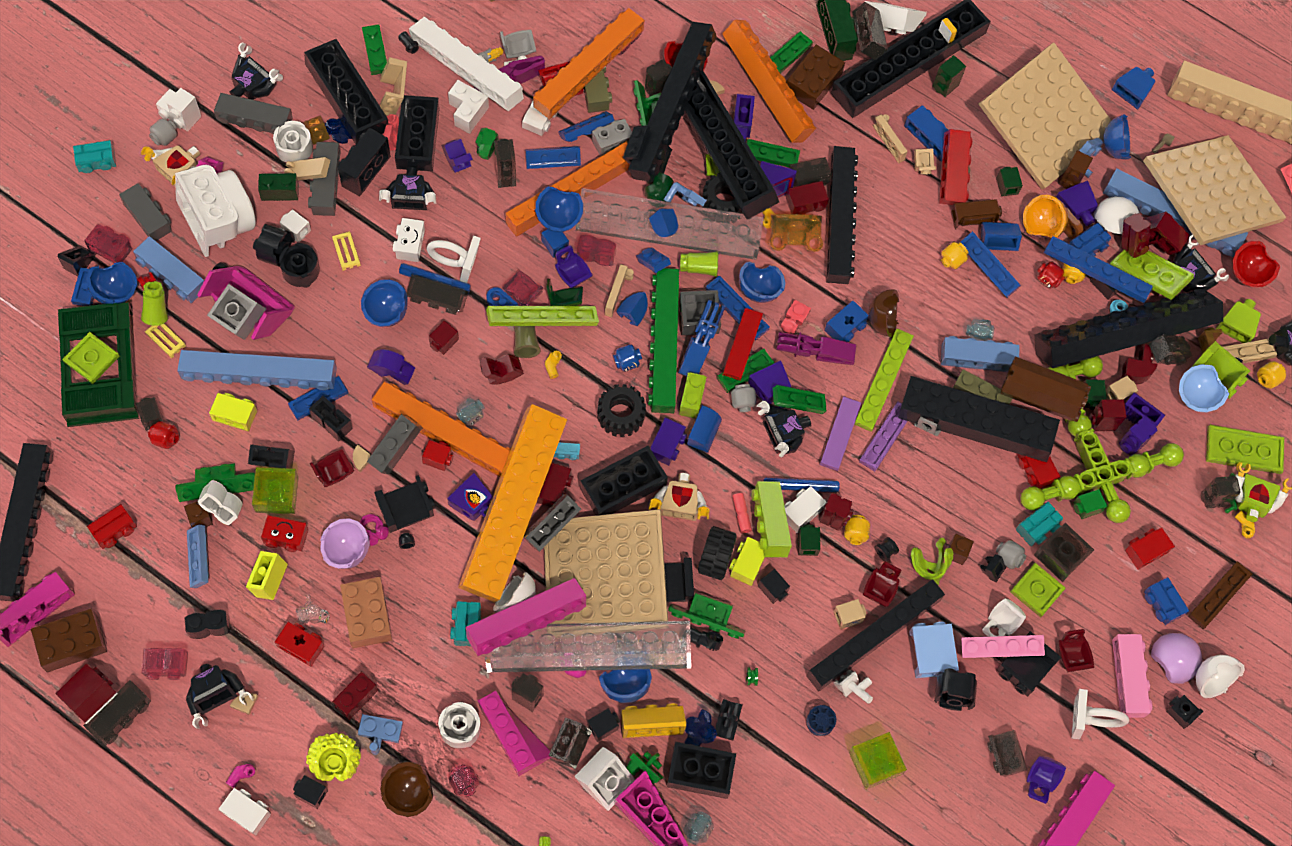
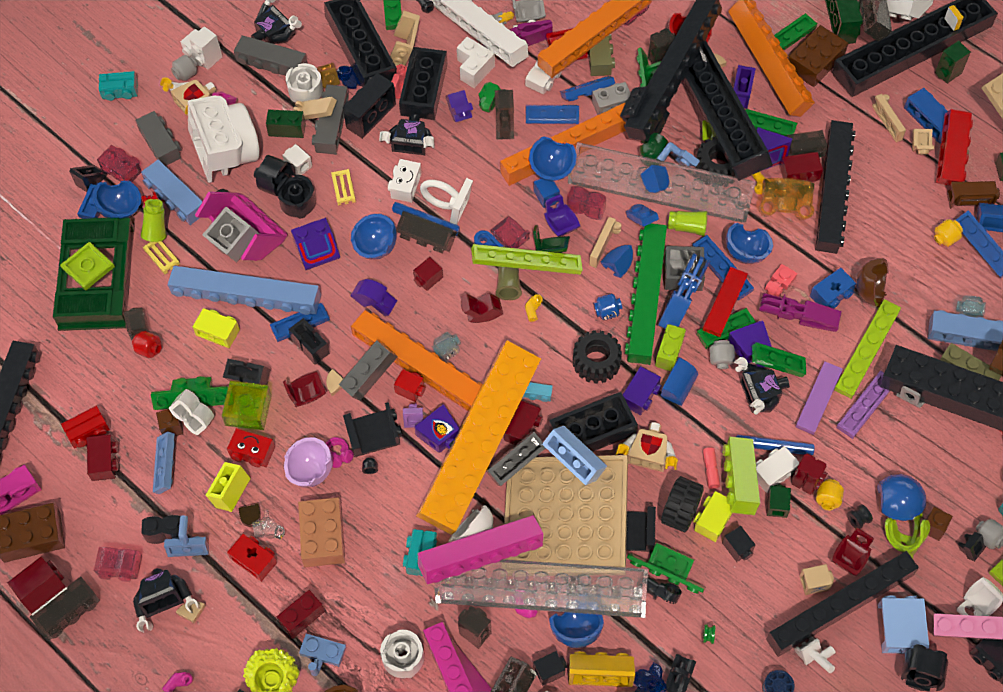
camera: 15 degrees right, 5 degrees down
(133, 556) = (102, 457): none -> dark red brick
(231, 639) = (186, 546): none -> medium blue plate
(291, 601) = (249, 514): none -> dark brown tile
(324, 314) = (315, 243): none -> dark purple slope
(444, 486) = (412, 416): none -> medium lavender tile
(609, 514) = (574, 455): none -> light blue brick
(925, 526) = (901, 497): none -> blue cylinder

